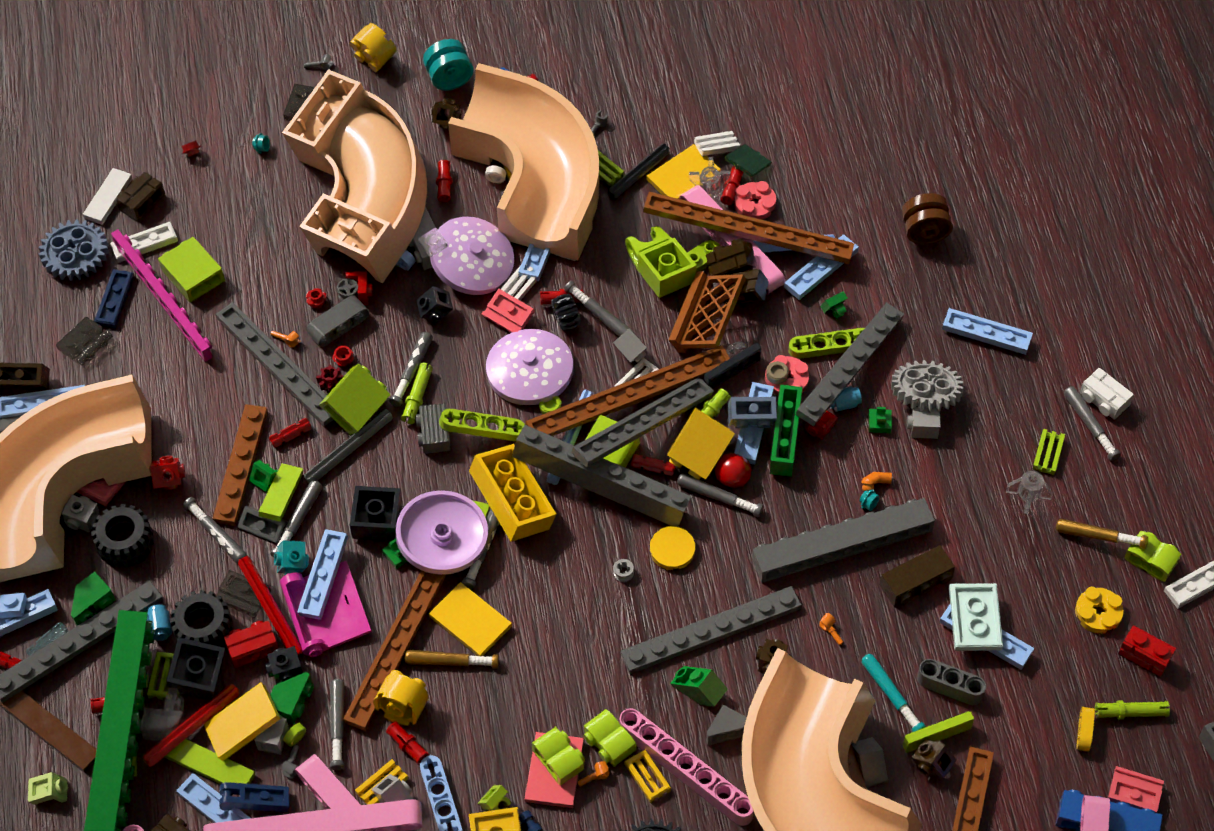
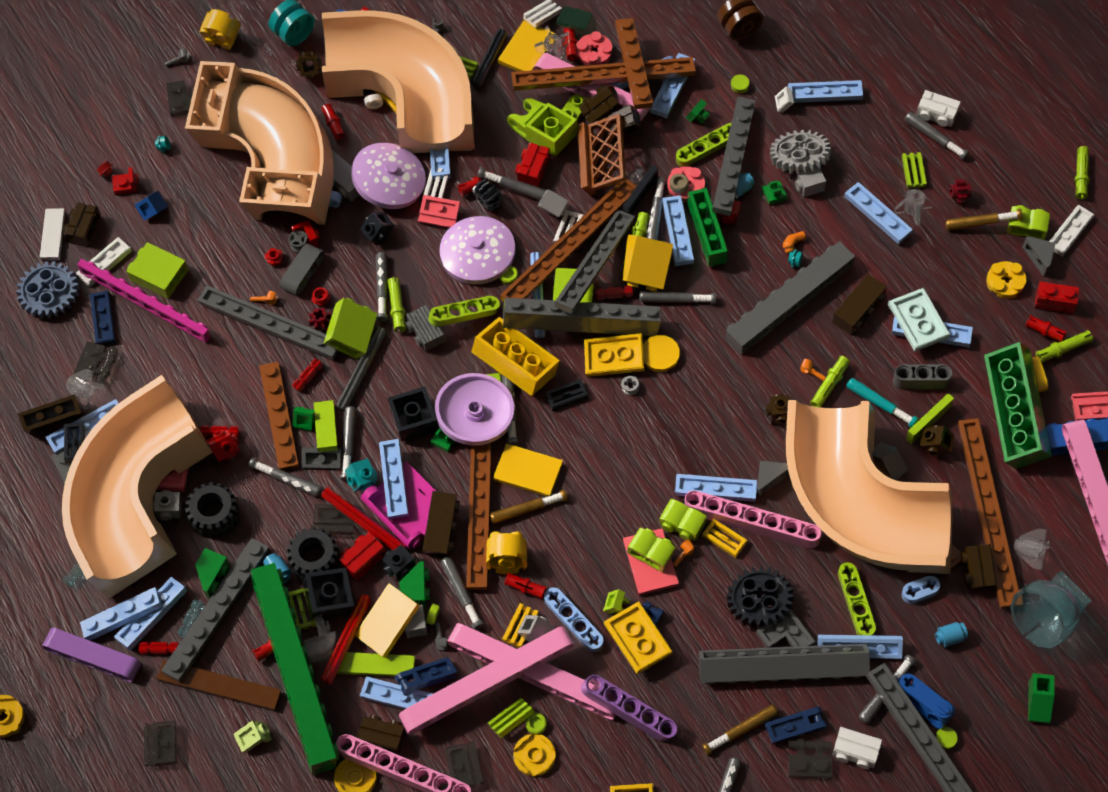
camera: 20 degrees left, 5 degrees up
(16, 404) = (67, 457): none -> black tile
(58, 361) = (83, 386): none -> clear brick
(158, 452) = (206, 431): none -> red axle
(204, 170) = (125, 182): none -> red bracket
(218, 201) = (151, 205): none -> blue panel
(348, 640) = (441, 524): none -> dark brown brick
(432, 242) = (355, 176): clear plate -> none
(550, 559) = (581, 394): none -> black tile
(621, 531) = (614, 355): none -> yellow tile
(630, 298) = (533, 164): none -> red brick
(664, 716) = (717, 486): none -> light blue plate
(699, 685) = (733, 452): green slope -> none
(710, 630) = (719, 406): dark grey plate -> none
(733, 470) = (680, 274): red hair -> none
(743, 389) = (654, 222): none -> flat silver piece
(752, 411) = (676, 221): sand blue brick -> none
(784, 228) = (633, 63): none -> dark orange plate
(851, 644) = (829, 383): none -> lime pin
(897, 290) = (740, 84): none -> lime tile
(936, 324) = (784, 99): none -> white tile
(985, 484) = (878, 213): none -> light blue plate
(1043, 755) = (1017, 405): none -> green brick
(1090, 492) = (960, 191): none -> dark red gear
(1119, 681) = (1046, 328): none -> red pin
(1152, 594) = (1040, 253): none -> dark grey slope

